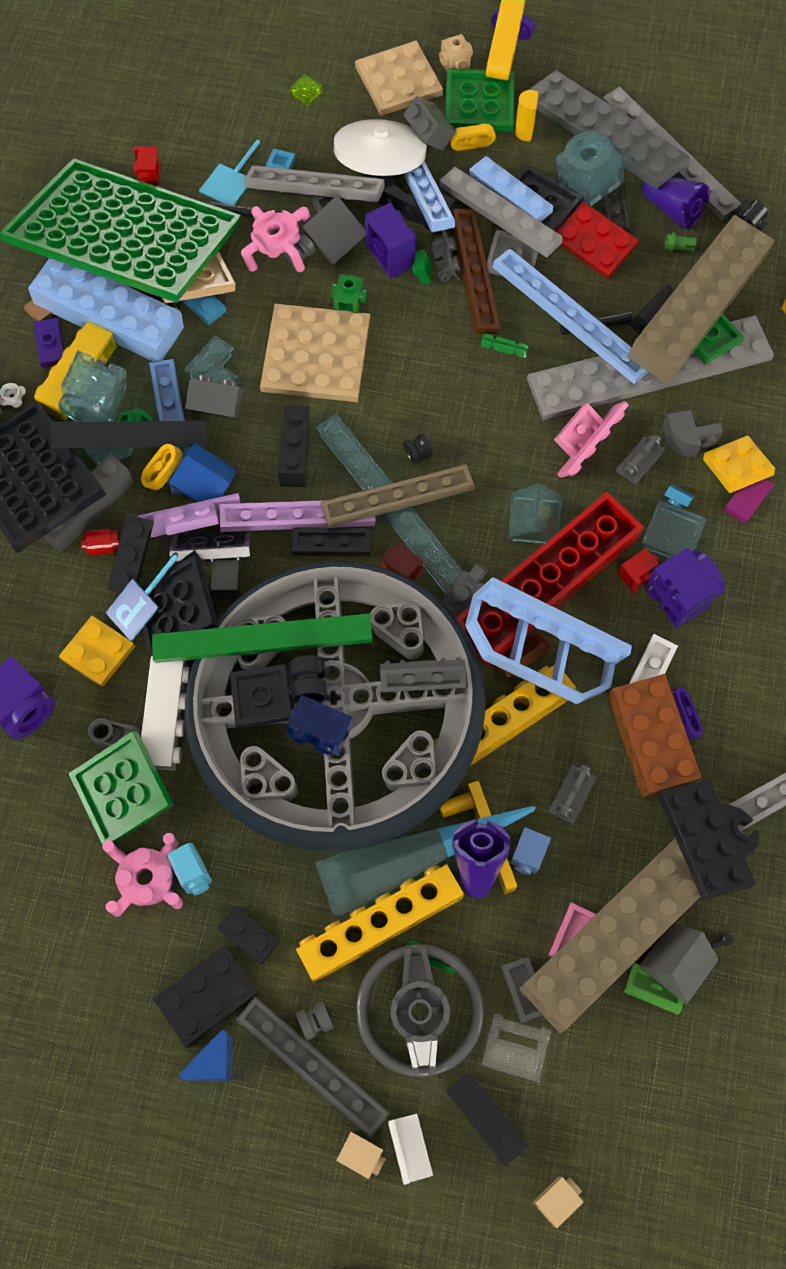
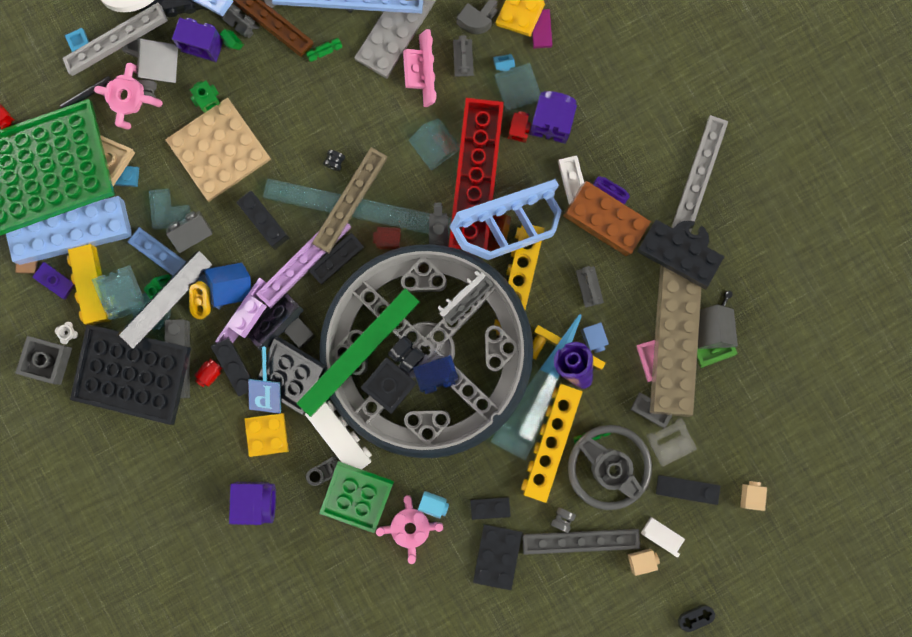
camera: 45 degrees left, 15 degrees up
(213, 1062) = (535, 587): blue slope -> none
(227, 184) = (56, 83): medium azure piece -> none

